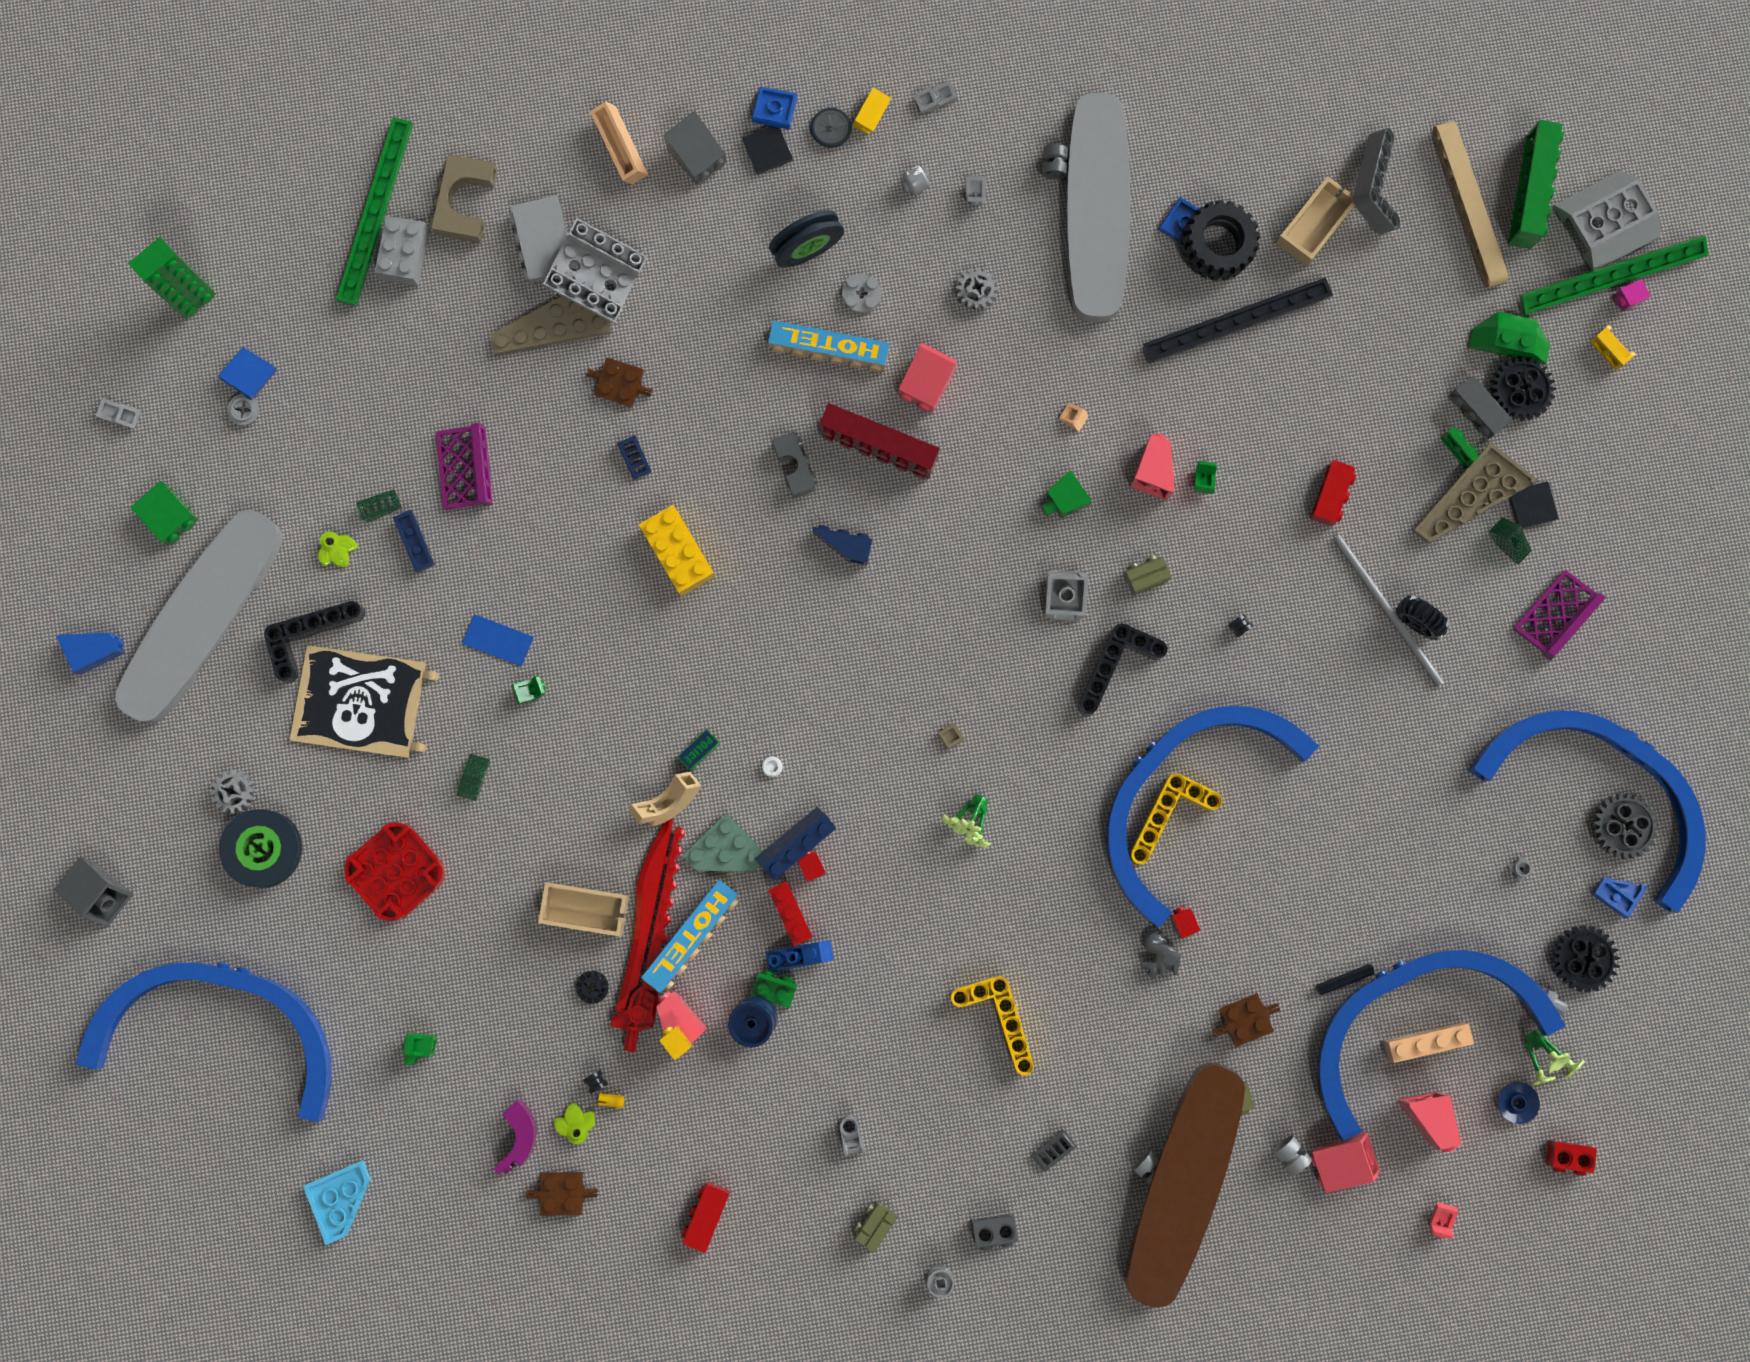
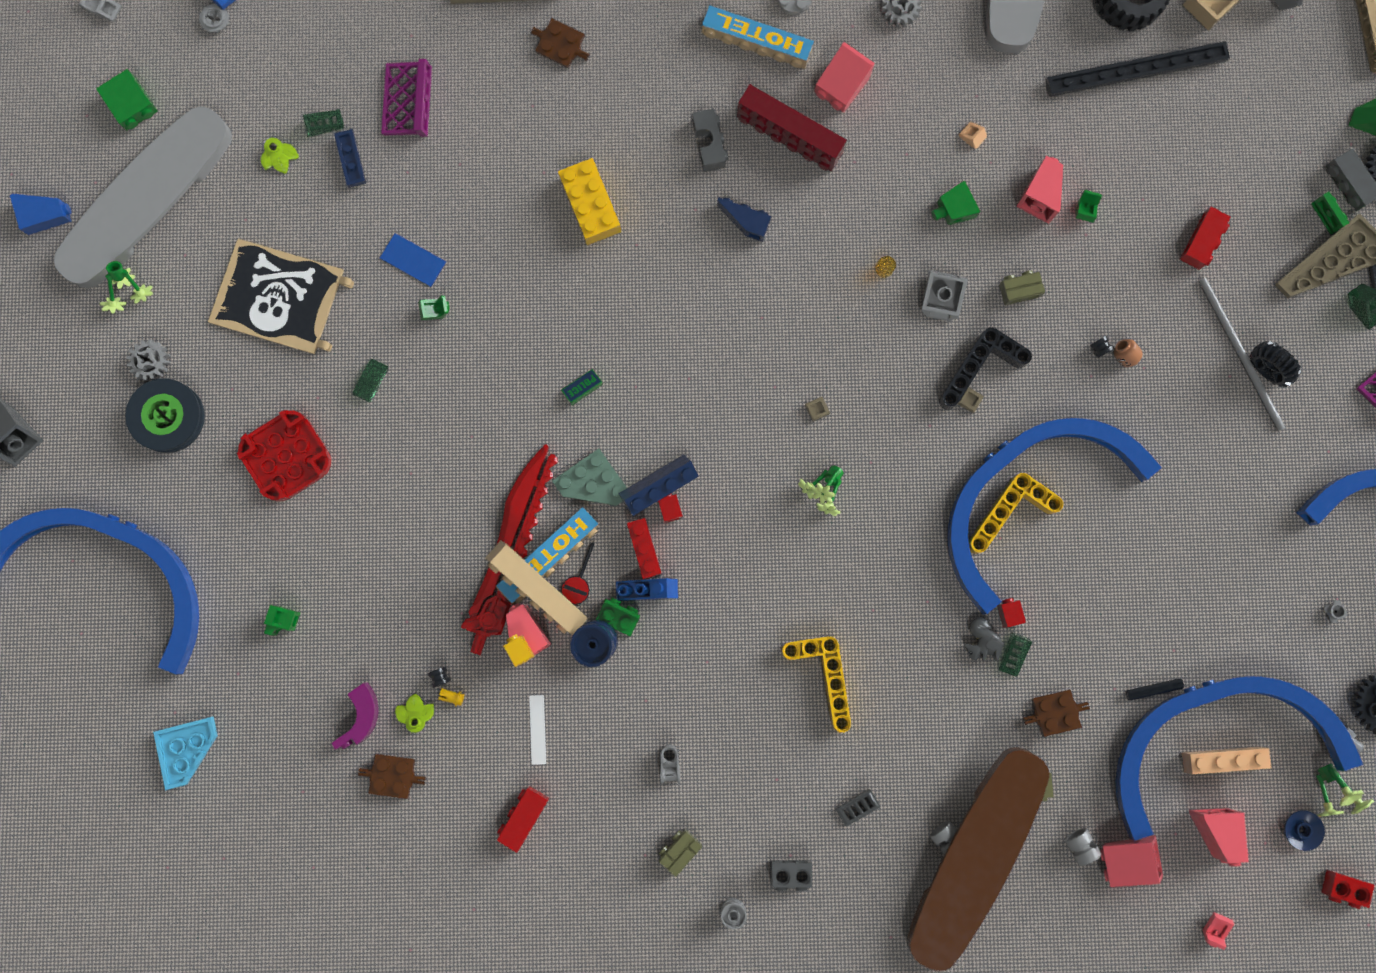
camera: 10 degrees right, 0 degrees up
(187, 705) = (118, 275): none -> plant
(305, 630) = (238, 224): black beam -> none
(583, 909) = (452, 515): tan piece -> none
(601, 984) = (459, 588): black gear -> none
(633, 439) = (560, 97): dark blue slope -> none
(669, 803) = (546, 431): tan arch -> none
(683, 973) = (533, 585): none -> tan brick
(707, 1121) = (537, 729): none -> white sticker
(725, 966) = (575, 587): none -> piece
(772, 766) = (647, 412): white tile -> none
(1003, 571) = (887, 263): none -> clear yellow wheel
(1111, 702) = (971, 400): none -> dark tan tile
(1201, 966) = (1008, 652): none -> clear green slope
(1268, 628) = (1128, 353): none -> nougat head

